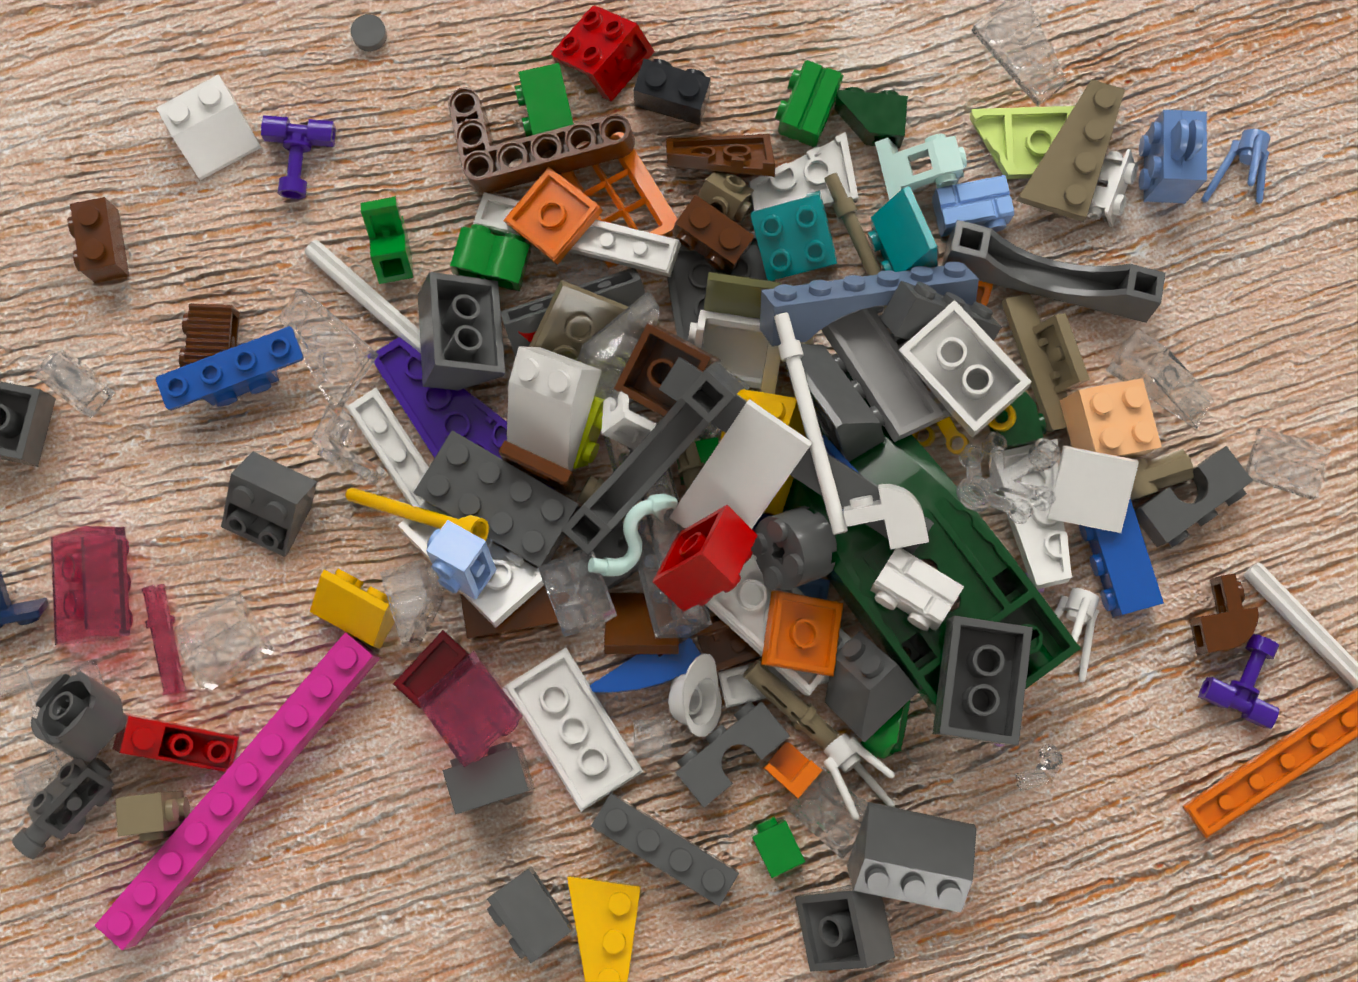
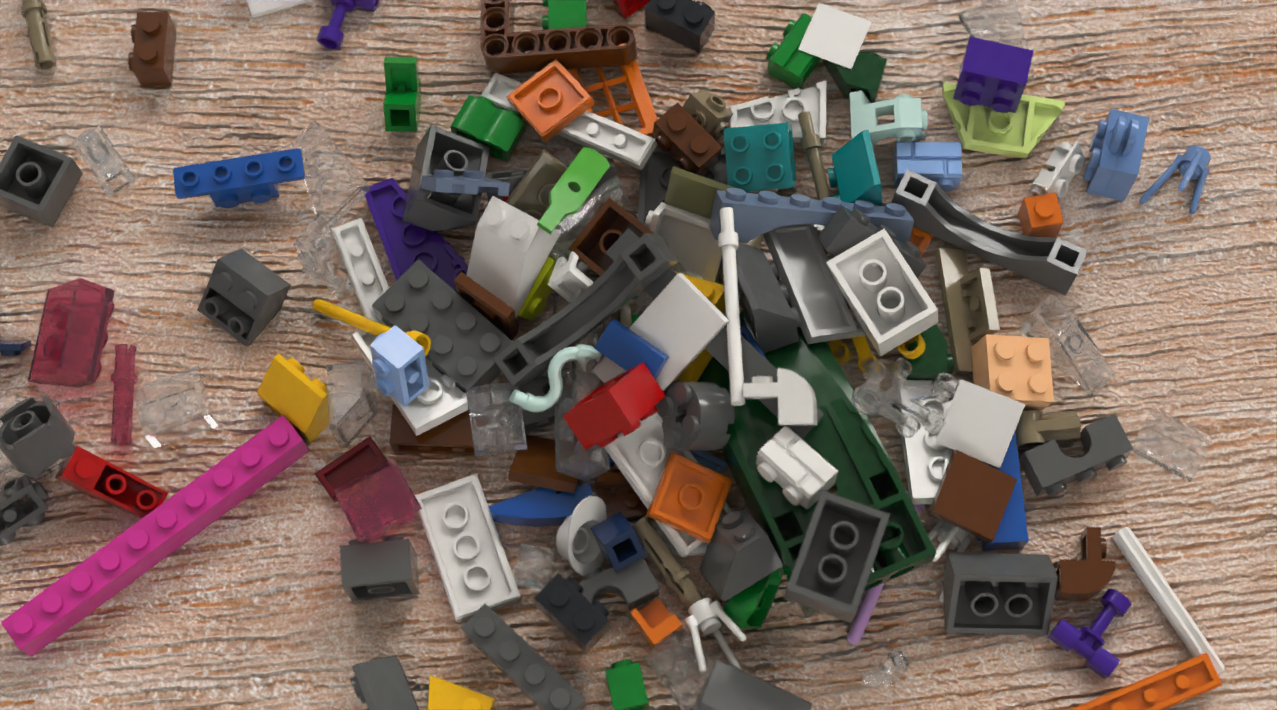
camera: 15 degrees right, 10 degrees down
(151, 814) = (73, 535): dark tan brick -> none
(208, 331) = (228, 139): reddish brown brick -> none
(363, 293) = (369, 136): white axle -> none
(483, 337) = (470, 183): none -> sand blue wing
(611, 304) = (581, 177): none -> bright green piece
(706, 787) = (575, 615): none -> black brick
(708, 491) = (629, 349): none -> blue tile
(723, 153) = (718, 79): reddish brown wing -> none
(736, 696) = (618, 541): none -> dark blue brick
(846, 80) = (835, 35): none -> white sticker
(1028, 94) = (993, 75): none -> dark purple brick
(1074, 160) = (1027, 139): dark tan wing -> none
(1099, 570) = (972, 496): none -> reddish brown tile
(1104, 241) = (1041, 216): none -> orange brick
(1141, 663) = (998, 593): none -> dark grey slope

